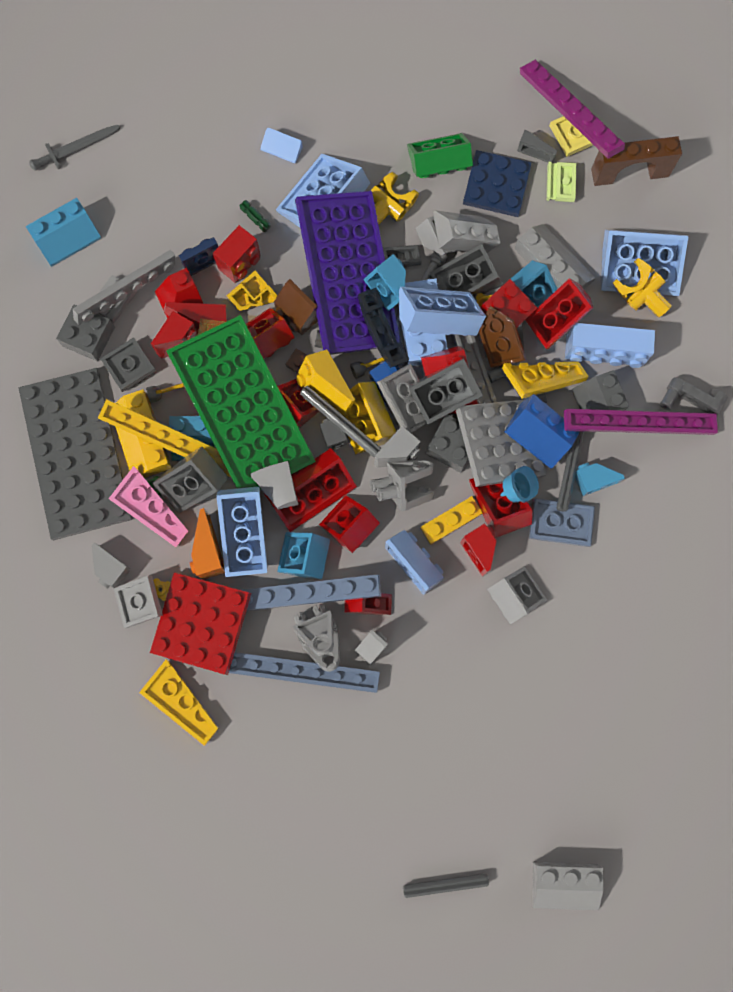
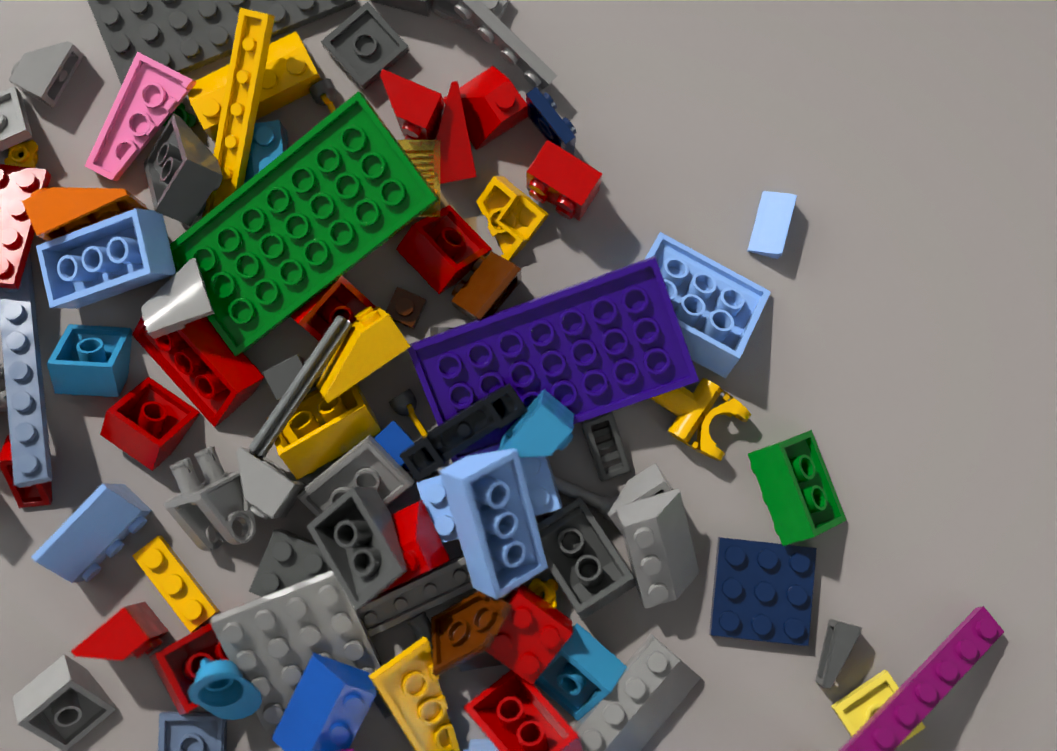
camera: 85 degrees right, 5 degrees up
(255, 216) = (642, 200): dark green axle -> none
(561, 181) = (781, 701): yellowish green plate -> none

